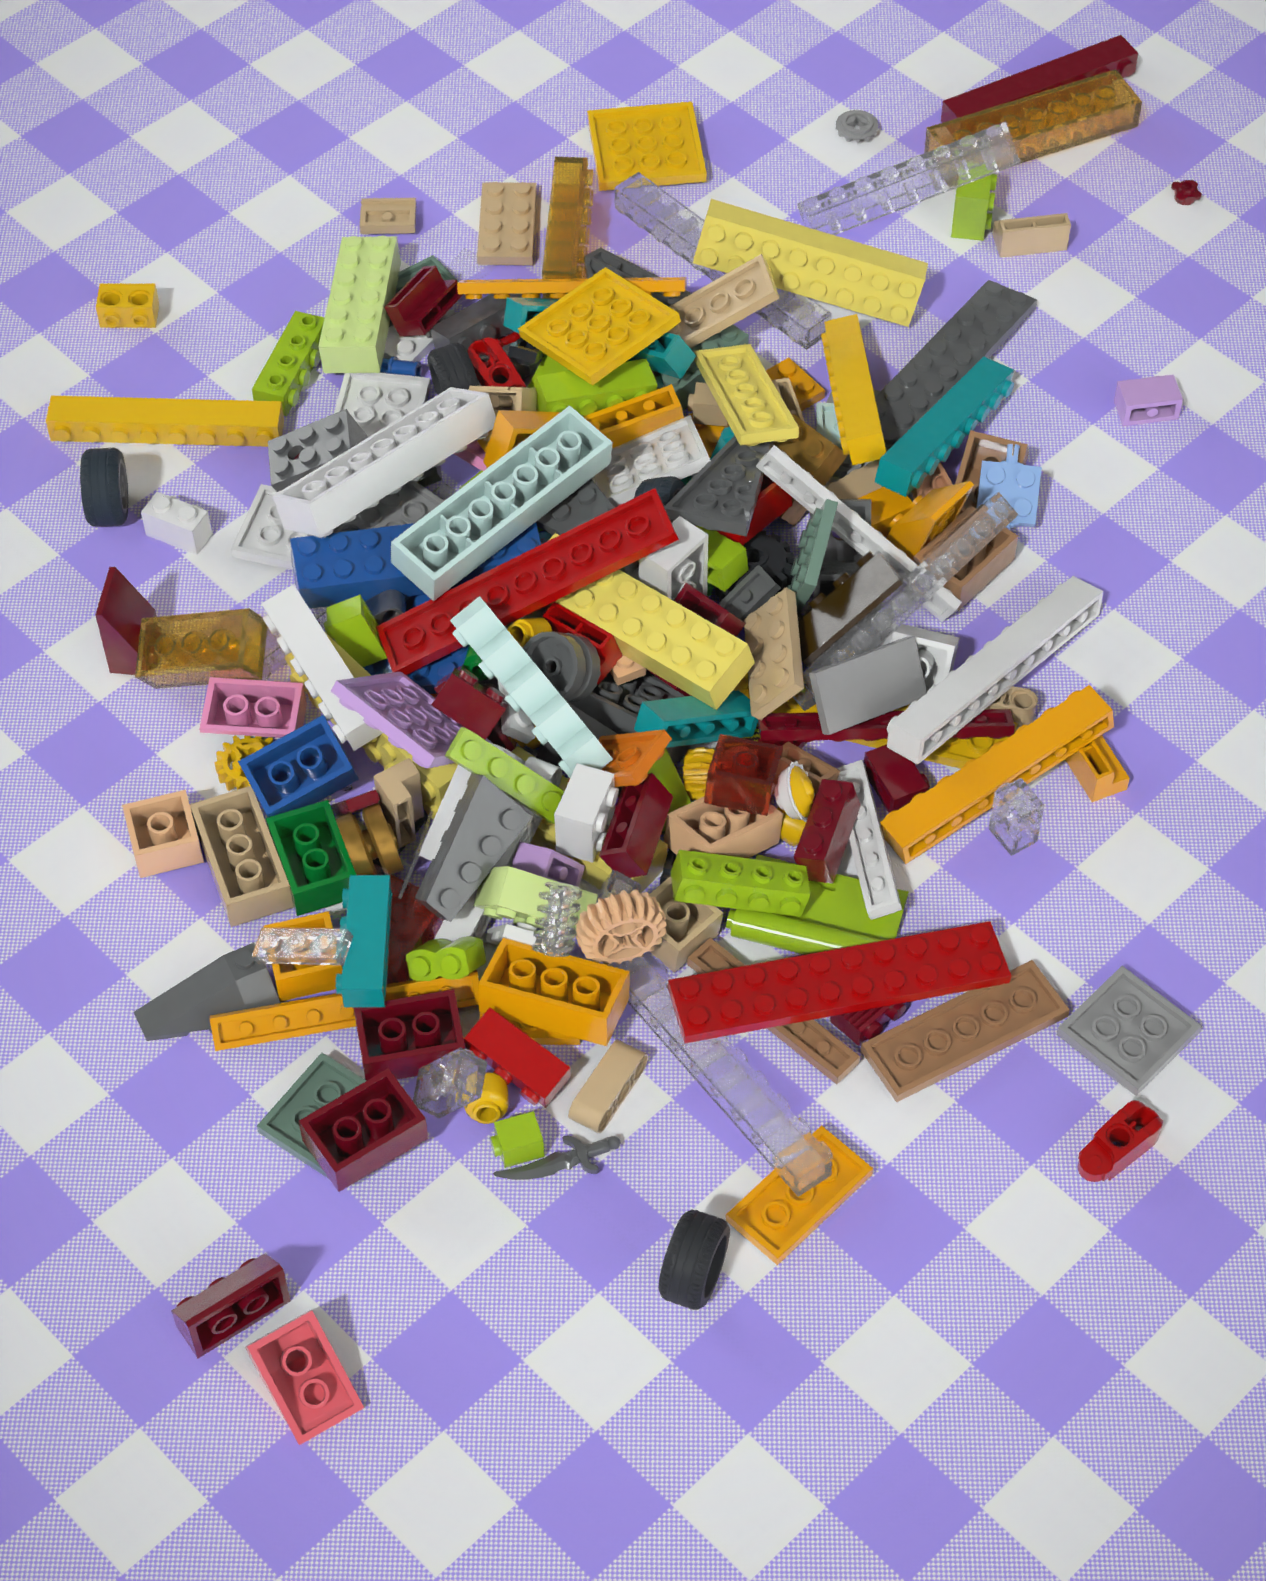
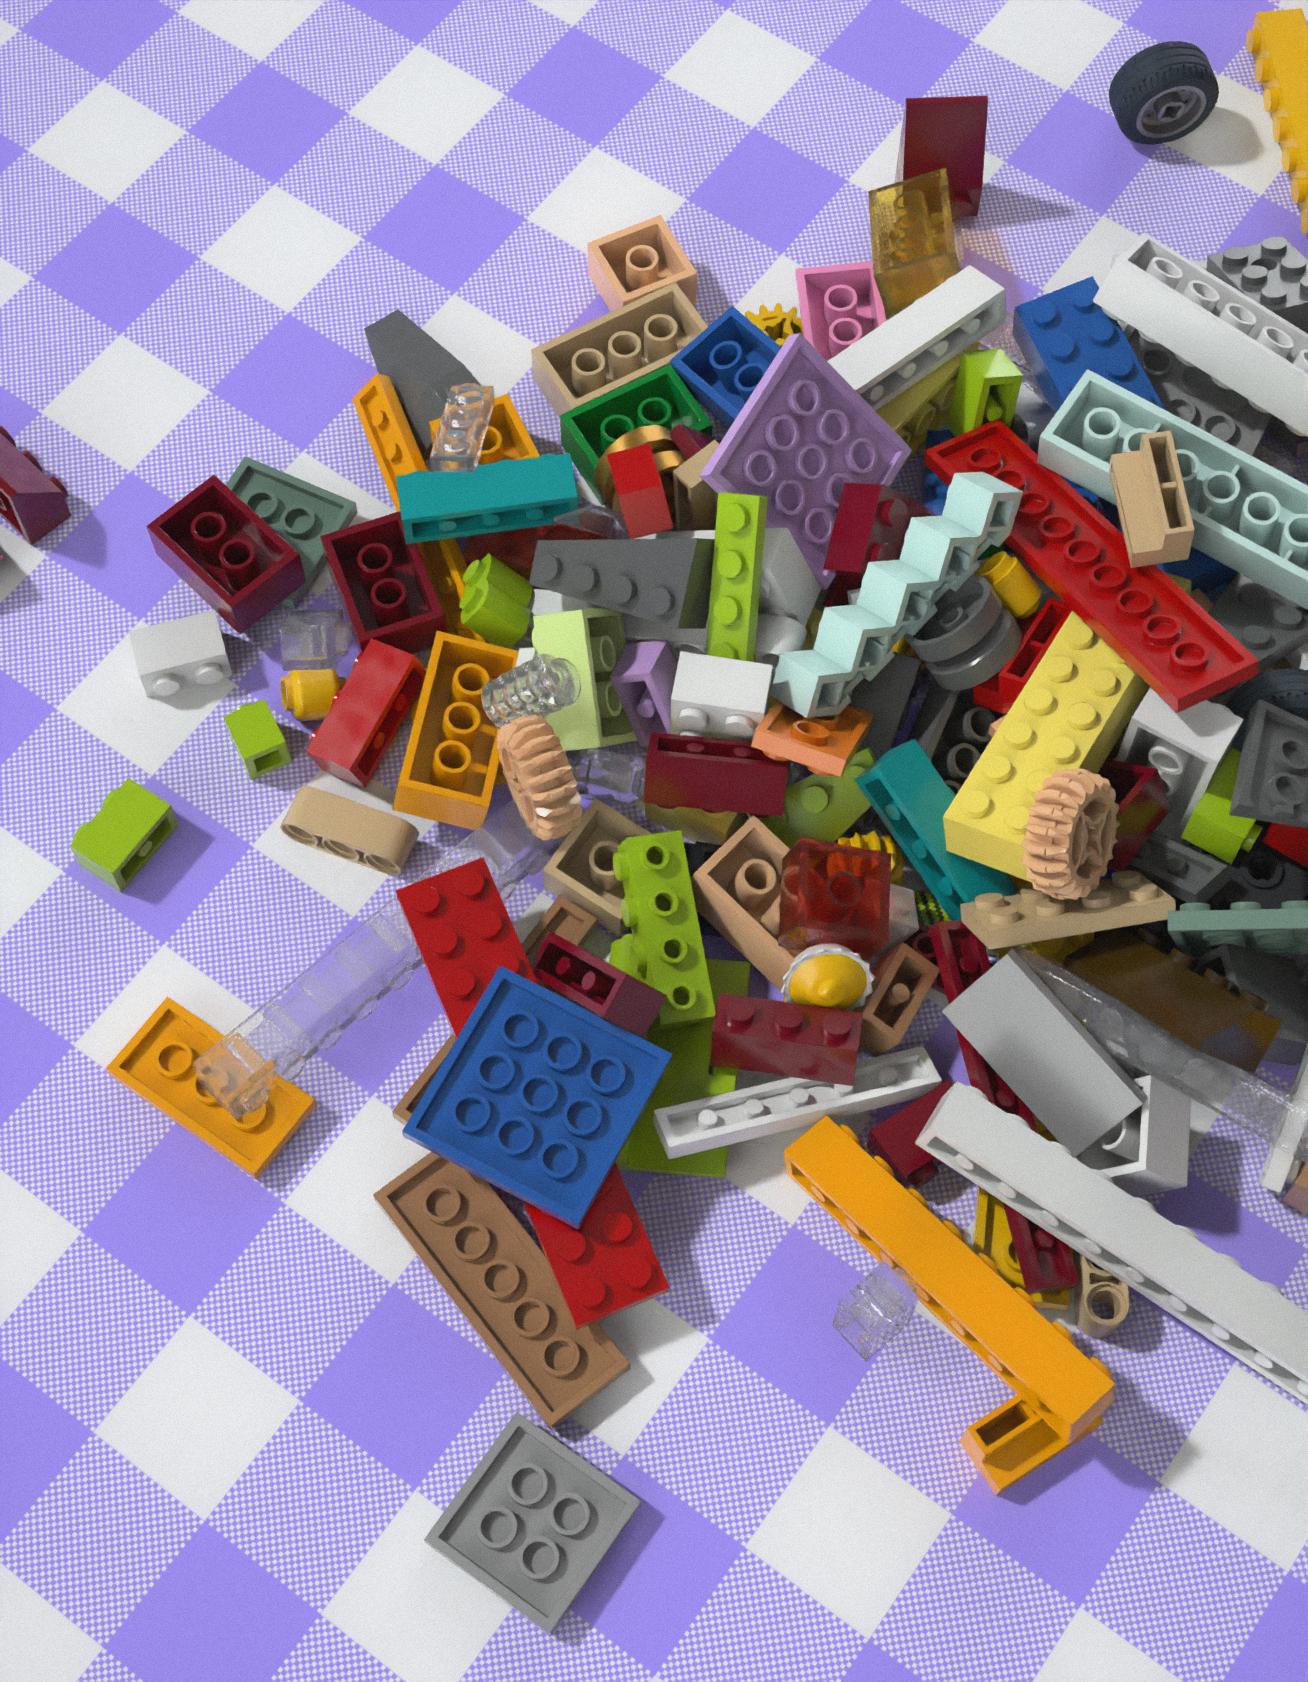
camera: 80 degrees right, 10 degrees up
(176, 523) = (1140, 188): white brick -> none
(396, 826) = (640, 491): none -> red slope
(430, 1186) = (180, 654): none -> white brick
(512, 523) = (1152, 502): none -> tan piece
(563, 1160) = (242, 799): dark grey piece -> none
(583, 1237) = (124, 834): none -> lime brick
(694, 1259) = (76, 956): black tyre -> none
(741, 620) = (1070, 833): none -> light nougat gear
(776, 924) = (597, 984): none -> dark red brick
(858, 963) = (538, 1096): none -> blue plate
(1104, 1160) = (304, 1491): red piece -> none

